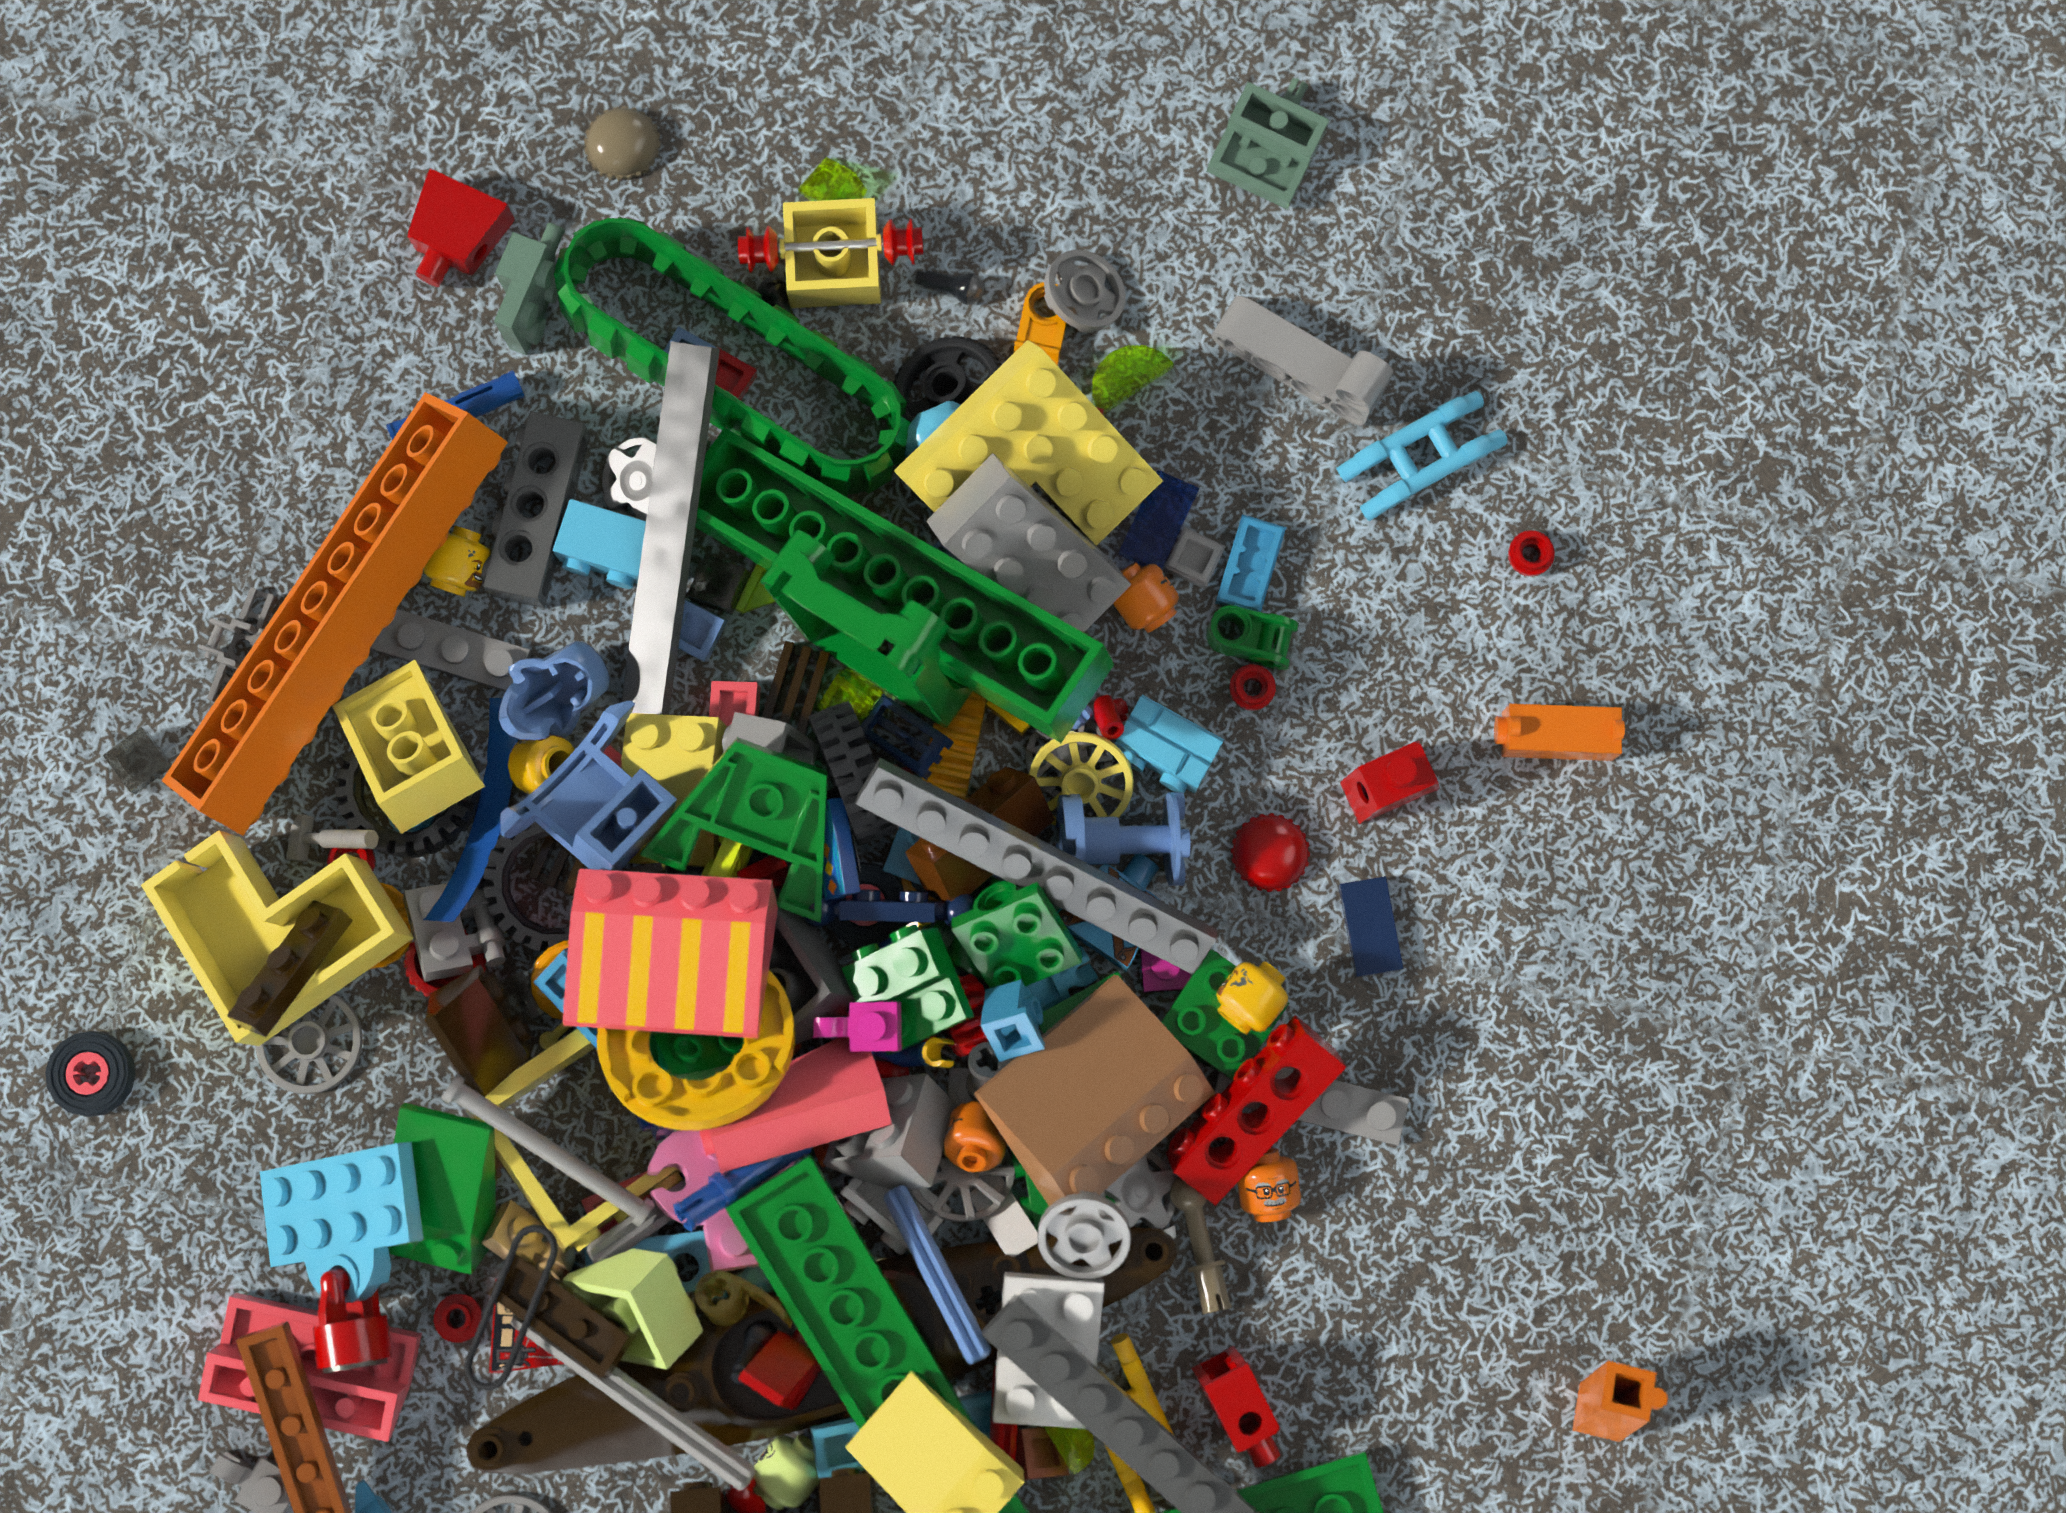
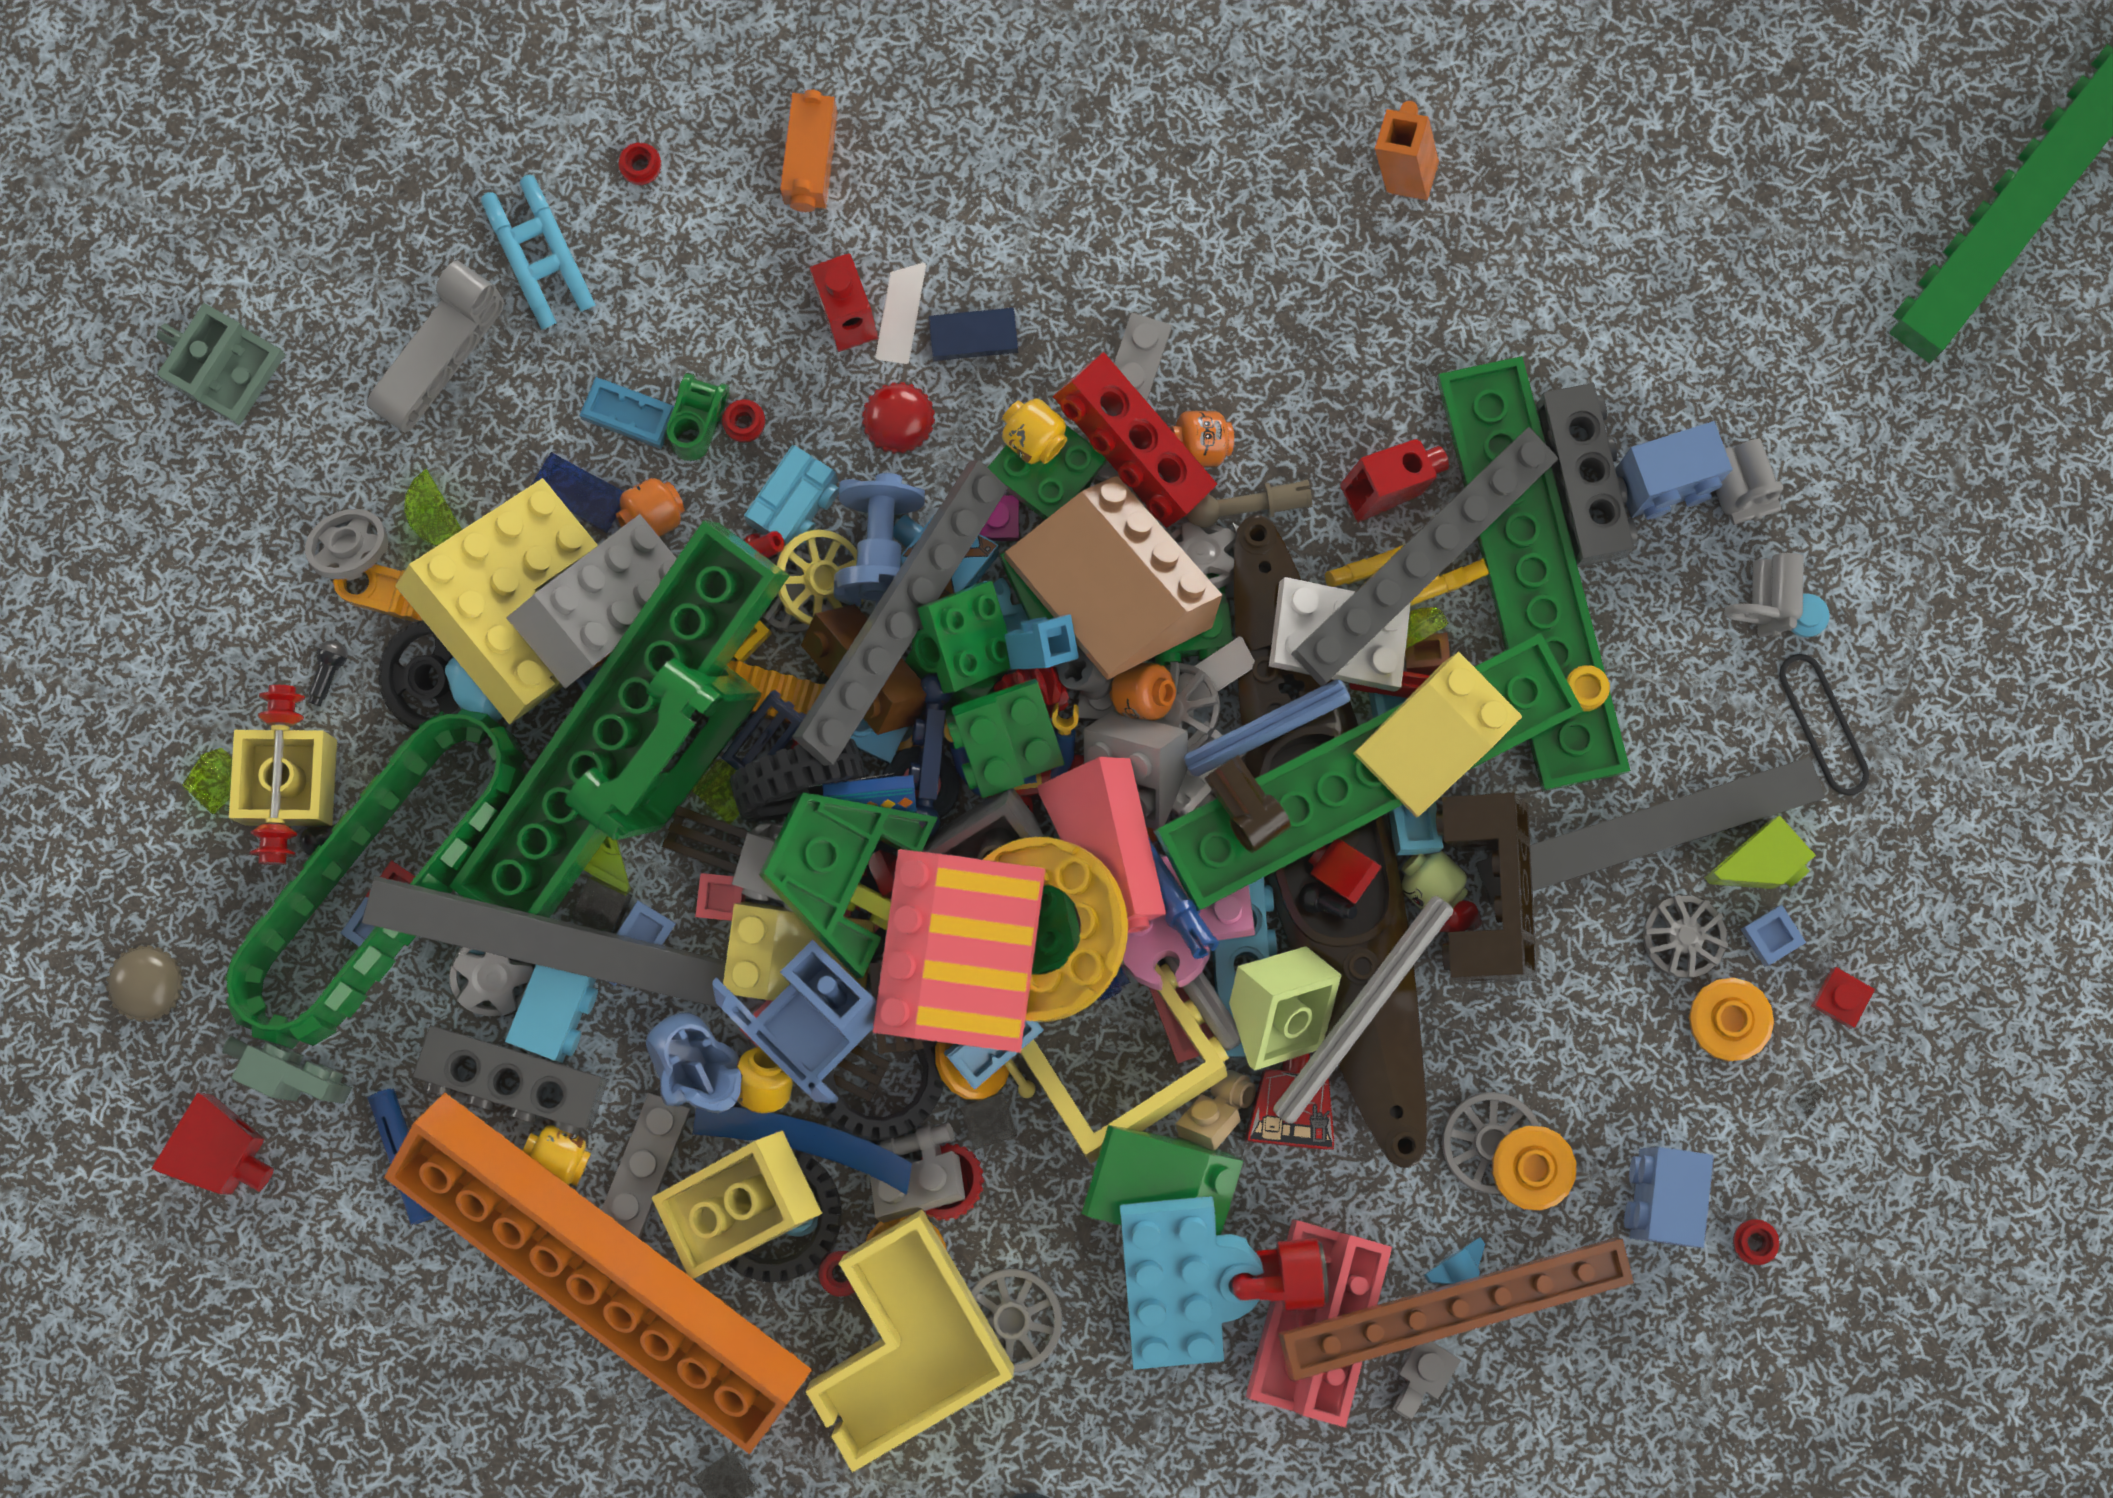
camera: 85 degrees left, 0 degrees up
(238, 627) = (630, 1391): light grey piece -> none
(289, 968) = (945, 1323): dark brown plate -> none
(302, 836) = (815, 1322): light grey piece -> none
(472, 1312) = (1266, 1187): red plate -> none
(478, 1029) = (1015, 1143): dark brown slope -> none
(529, 1315) = (1227, 1072): black piece -> none
(548, 1150) = (1076, 1155): light grey bar -> none
(565, 1317) = (1287, 1070): dark brown plate -> none
(740, 1291) = (1271, 909): clear yellow panel -> none
(829, 1260) = (1254, 816): none -> dark brown piece
(869, 1026) = (1039, 771): dark pink plate -> none
(1084, 1235) = (1241, 589): light grey wheel -> none
(1194, 558) = (616, 463): light grey tile -> none
(1388, 846) = (900, 314): none -> white sticker

